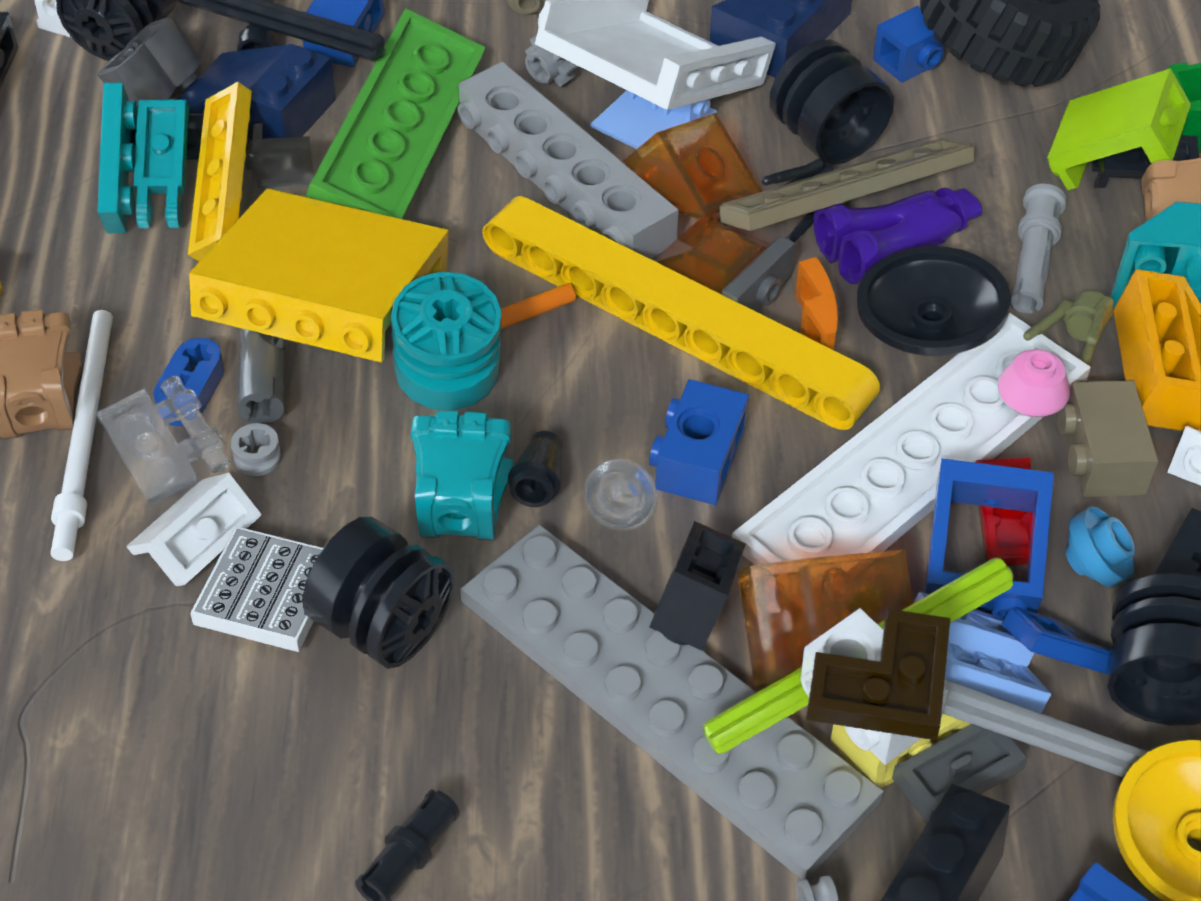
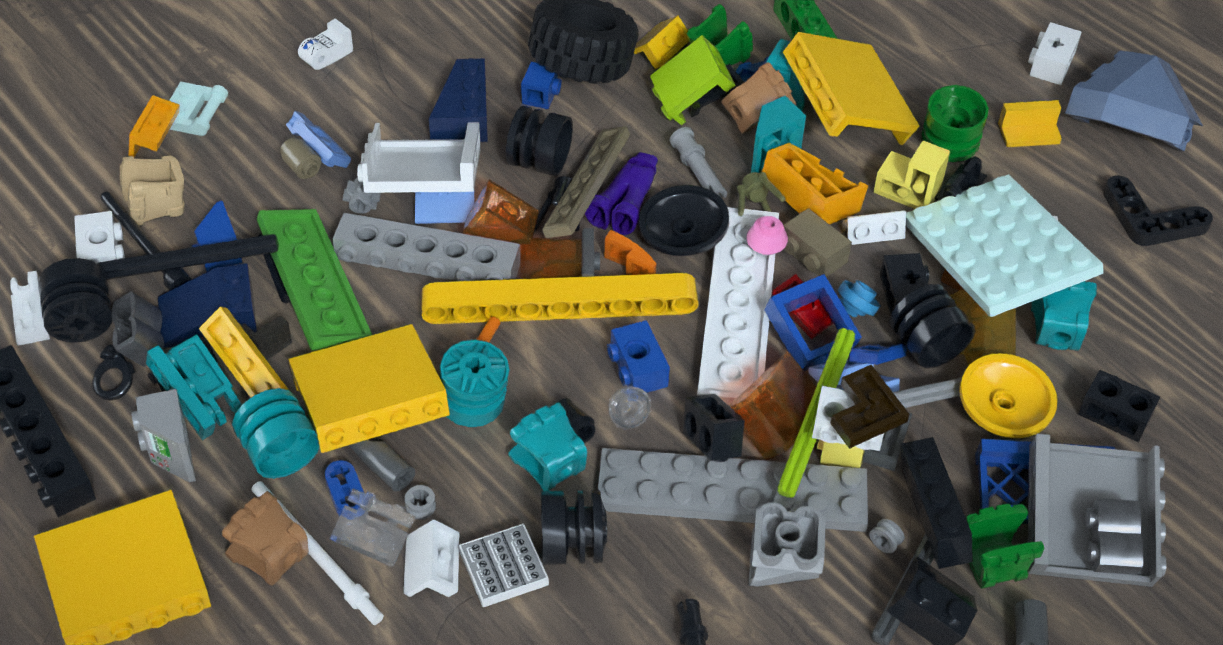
camera: 40 degrees left, 0 degrees up
(57, 189) = (164, 433): none -> light grey slope
(93, 91) = (113, 360): none -> black piece
(153, 258) = (276, 433): none -> teal wheel
(643, 811) = (786, 545): none -> light grey piece
(1131, 66) = (663, 41): none -> yellow panel

